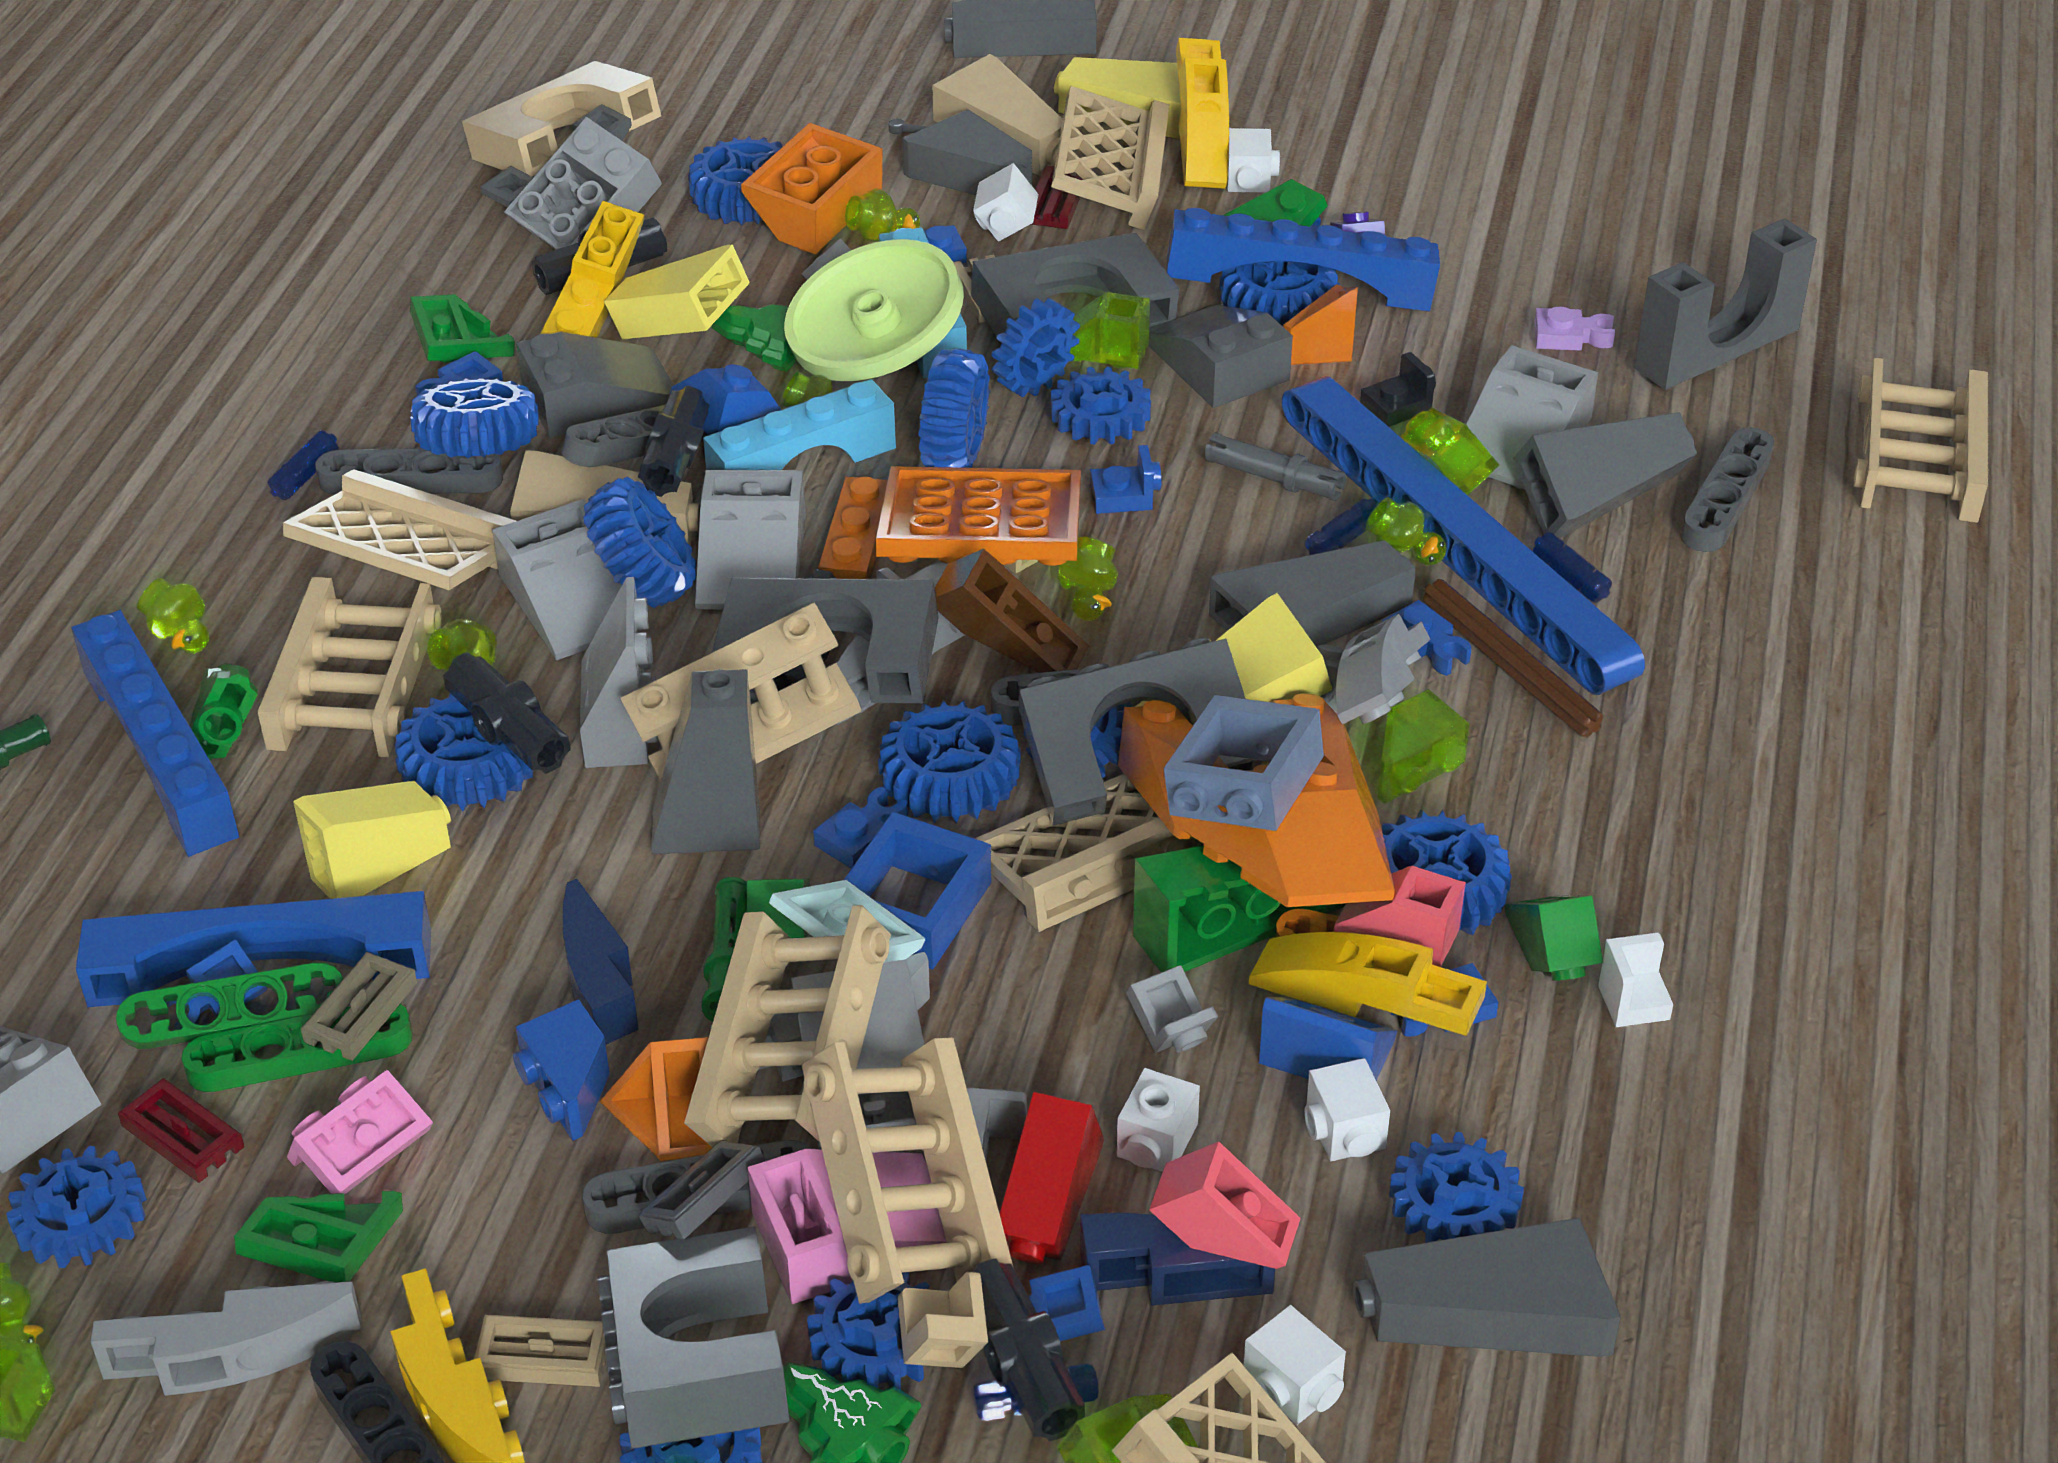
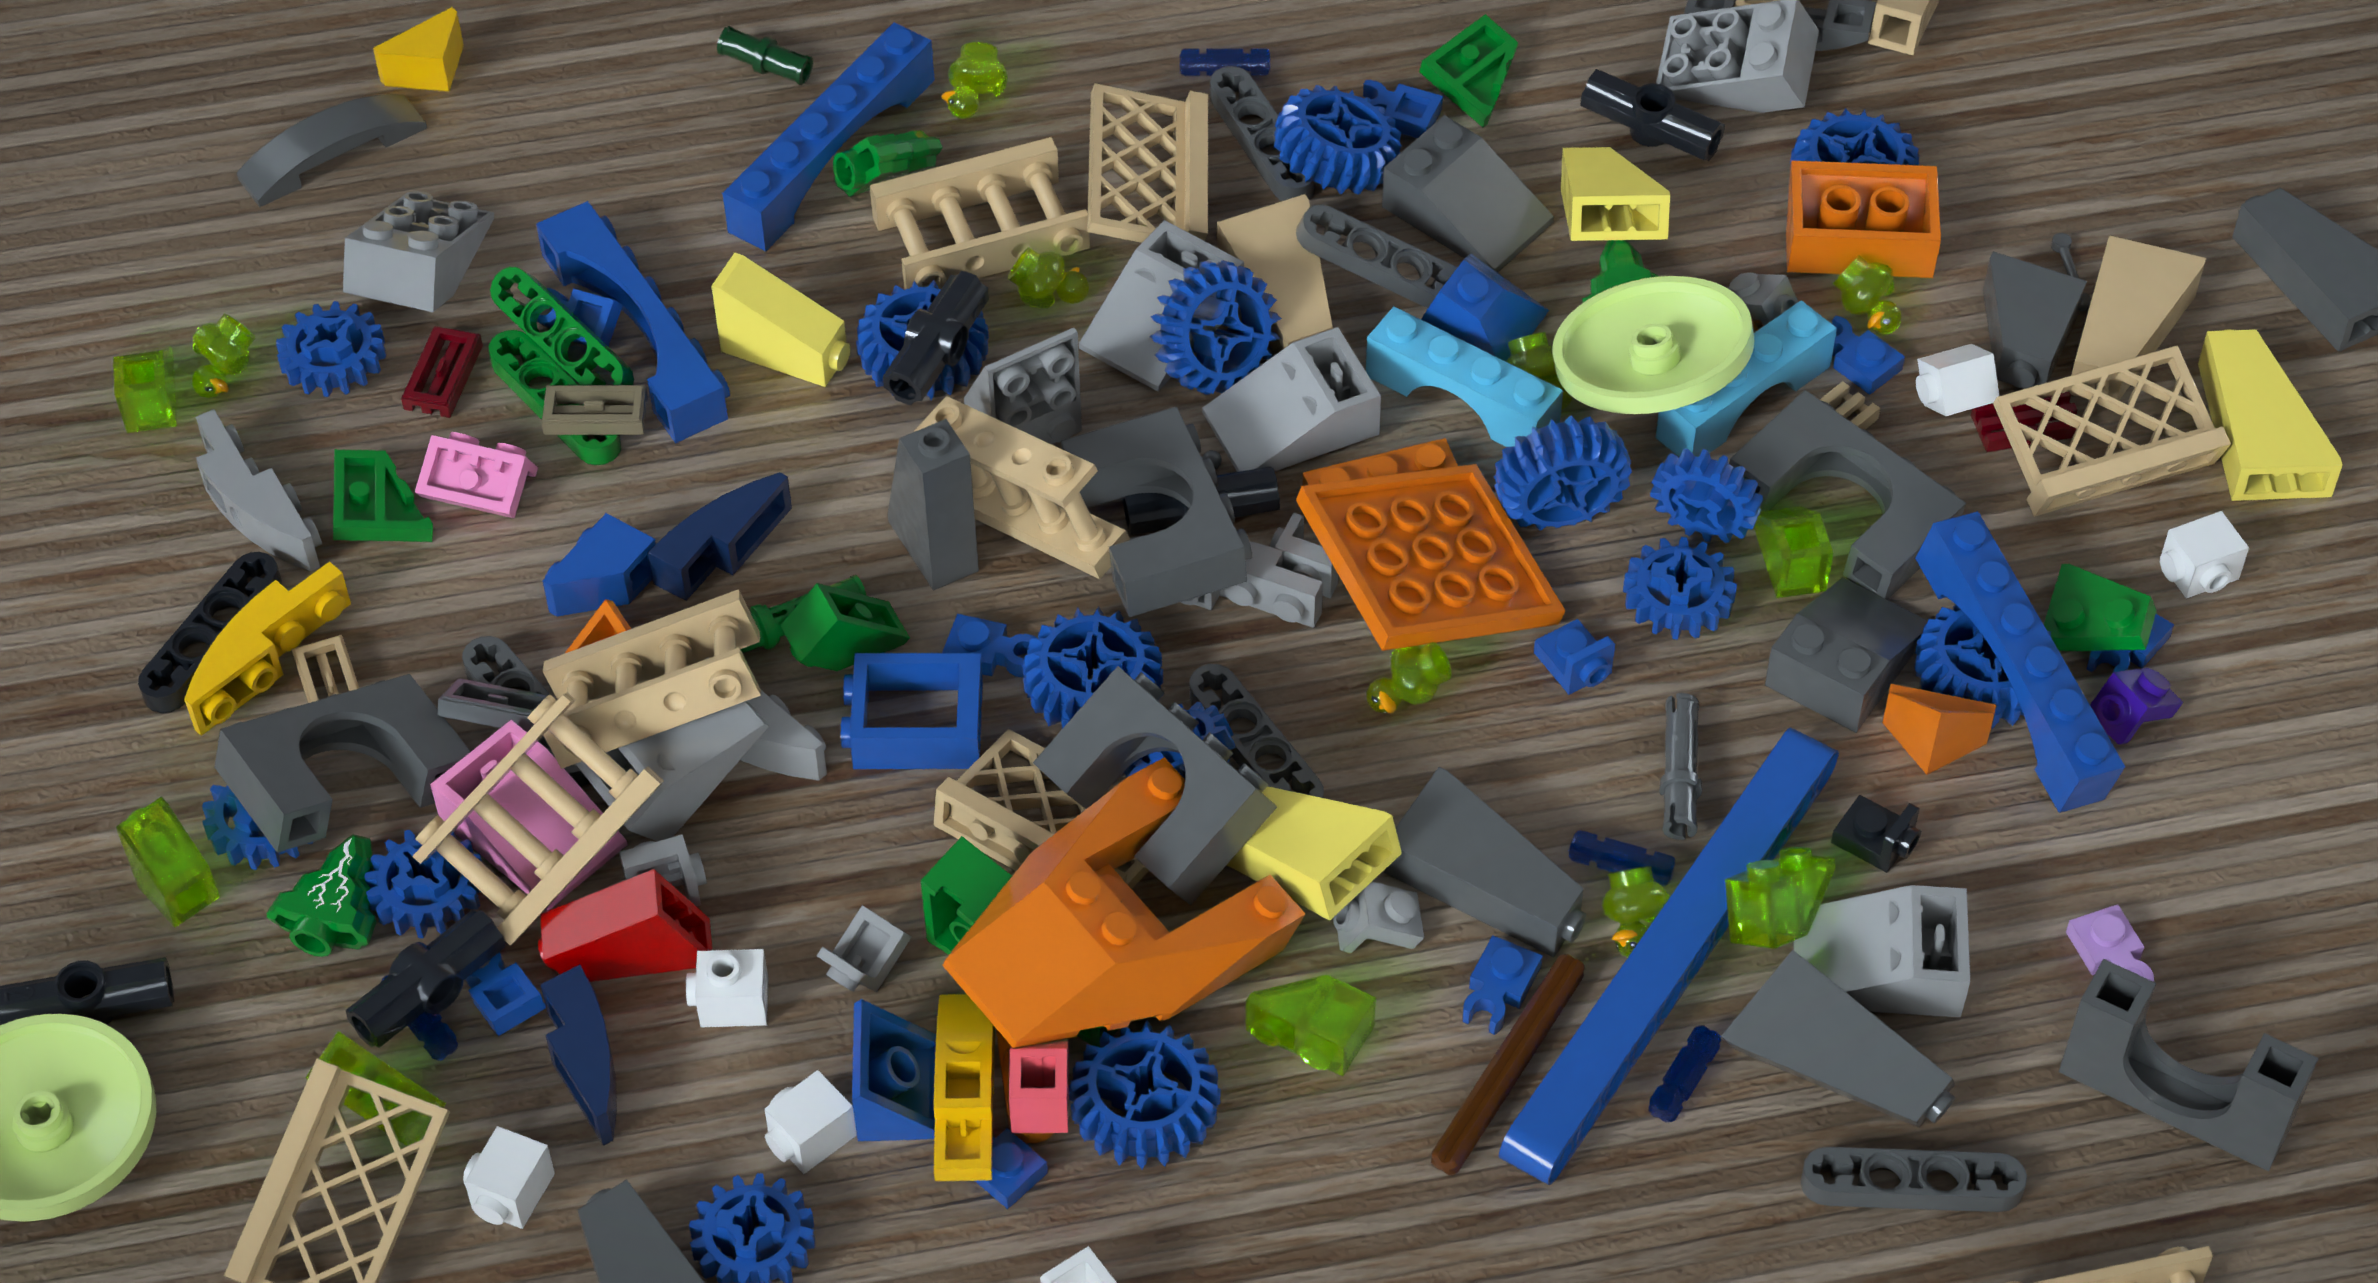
camera: 65 degrees right, 10 degrees up
(596, 271) = (1600, 119): yellow slope -> none
(673, 441) = (1364, 286): black piece -> none
(826, 910) = (802, 672): light aqua slope -> none
(943, 1325) = (420, 910): tan panel -> none
(1005, 615) = (1281, 636): reddish brown slope -> none
(1203, 113) = (2229, 470): yellow slope -> none
(1224, 1208) = (603, 1058): coral slope -> none
(1251, 730) = (1058, 887): sand blue window -> none
(1377, 669) = (1359, 937): light grey slope -> none
(1557, 934) = (1115, 1211): green slope -> none

